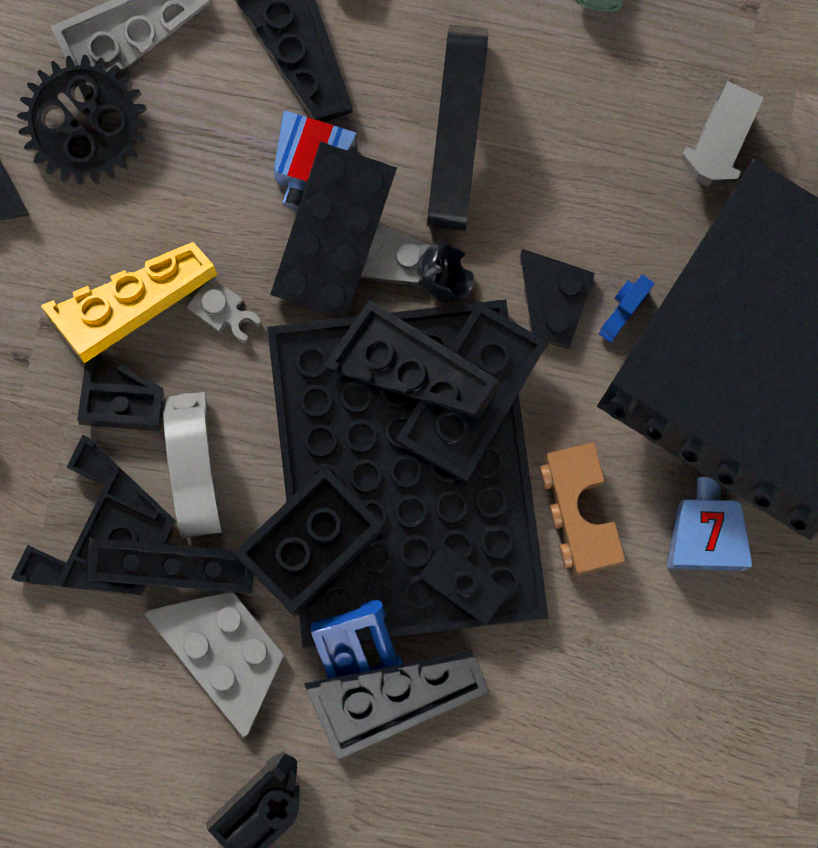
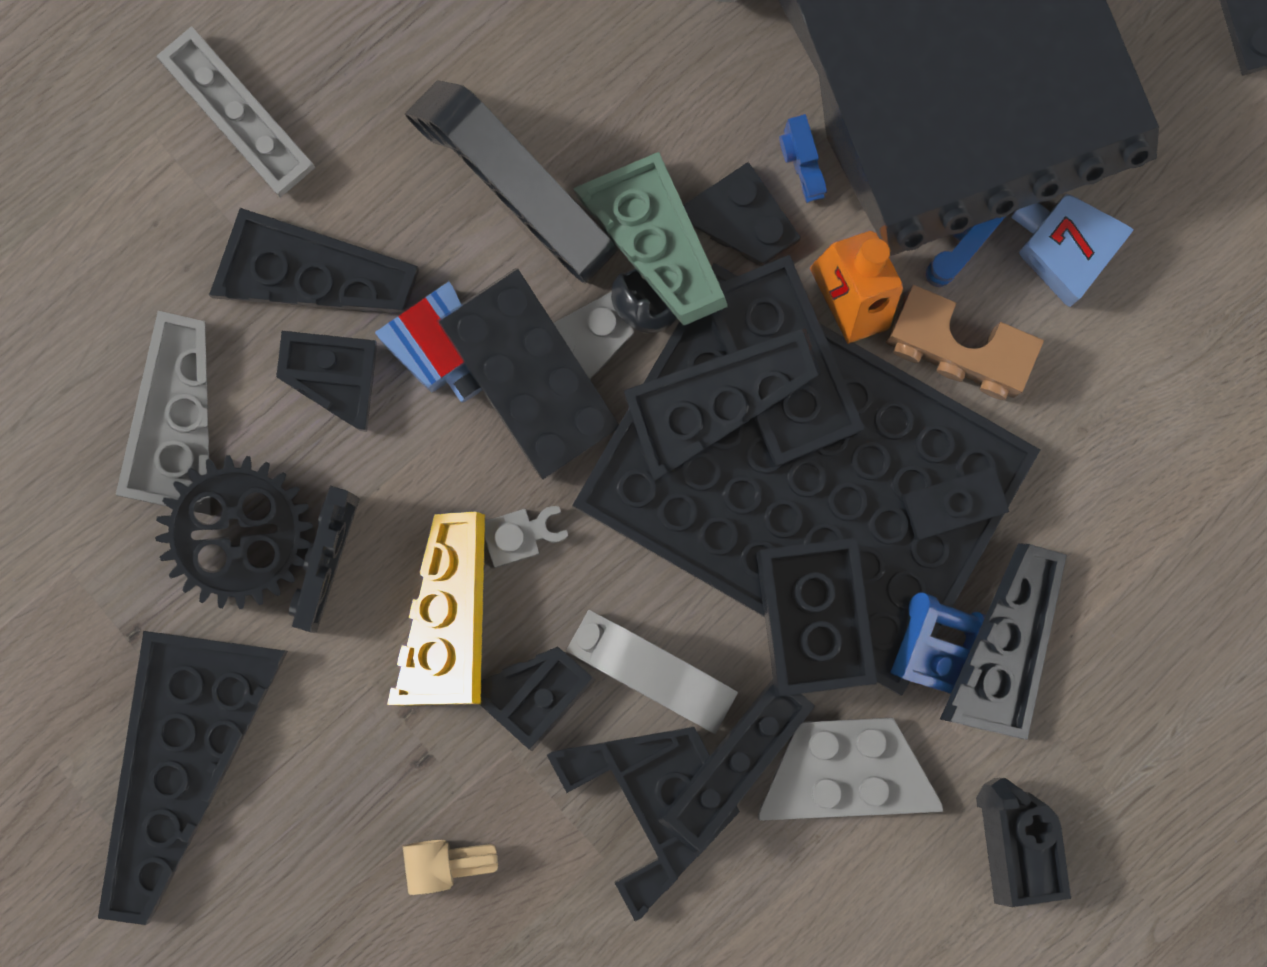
camera: 55 degrees left, 5 degrees up
(118, 186) = (323, 559): none -> black wing
(238, 105) = (330, 372): none -> black wing
(494, 244) = (654, 232): none -> sand green wing
(567, 396) = (859, 277): none -> orange torso
(660, 462) = (949, 264): none -> blue plate

